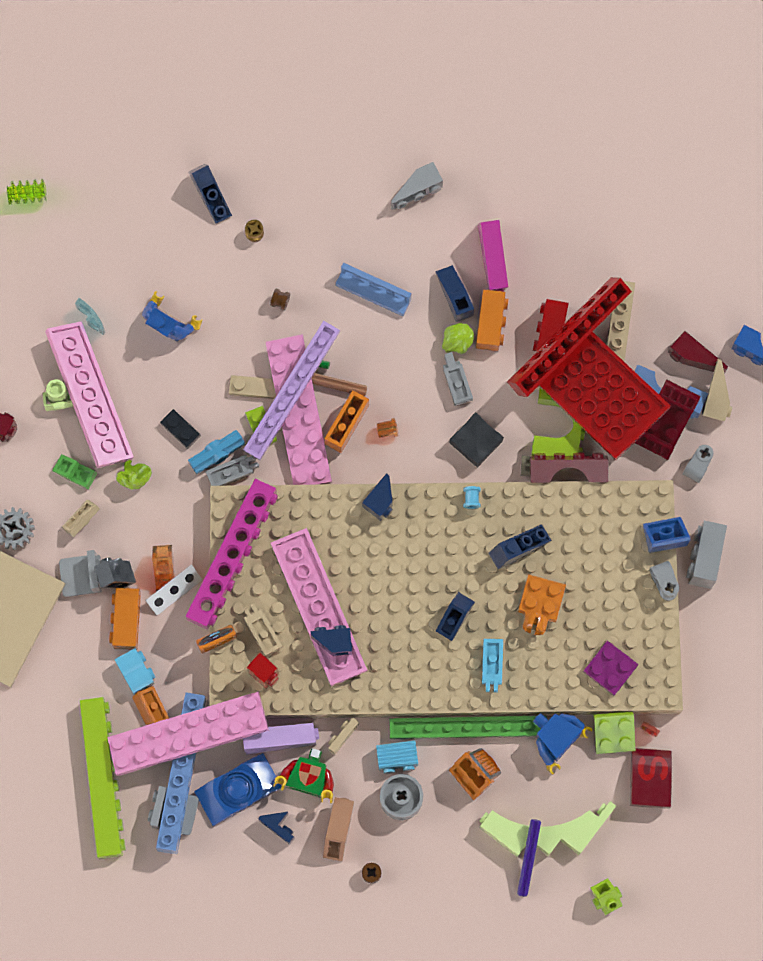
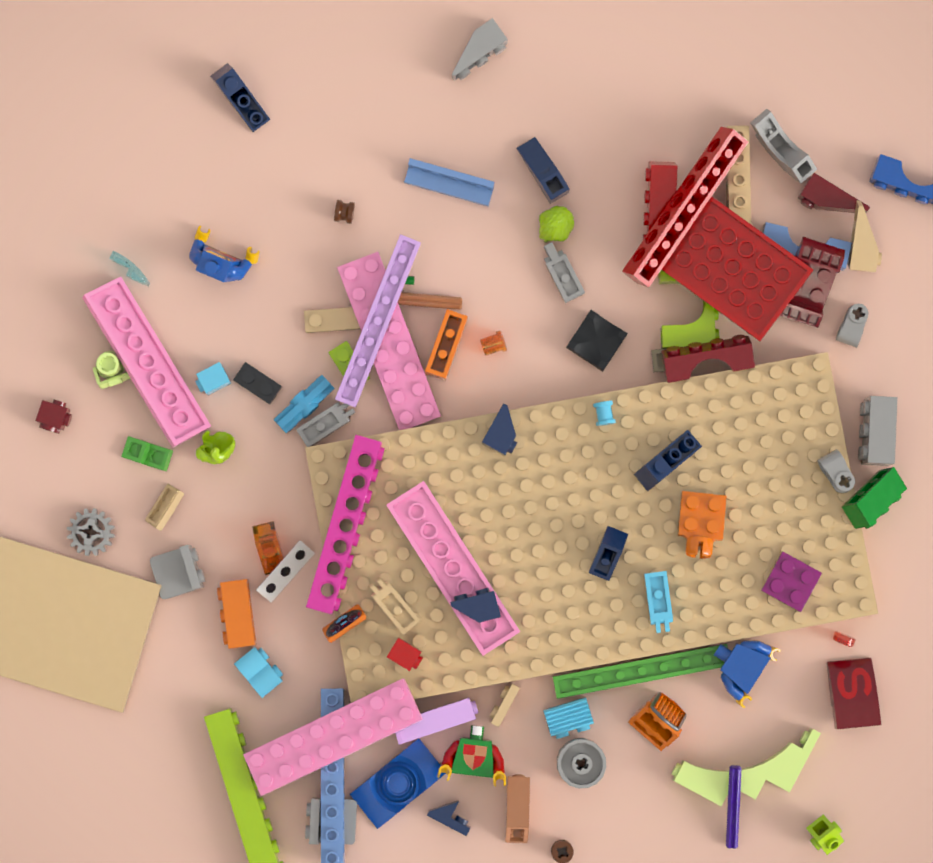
camera: 10 degrees left, 10 degrees up
(26, 192) = (27, 132): clear neon green piece -> none
(115, 573) = (215, 566): black brick -> none
(142, 418) = (212, 379): none -> medium azure brick
(150, 706) = (284, 709): orange slope -> none
(254, 226) = (298, 130): pearl gold wheel -> none
(491, 320) = (591, 196): orange brick -> none
(493, 255) = (580, 119): dark pink slope -> none
(614, 732) = (805, 650): lime plate -> none
(658, 305) = (781, 148): none -> light grey arch
(666, 534) = (829, 418): blue slope -> none
(695, 610) = (874, 498): none -> green brick

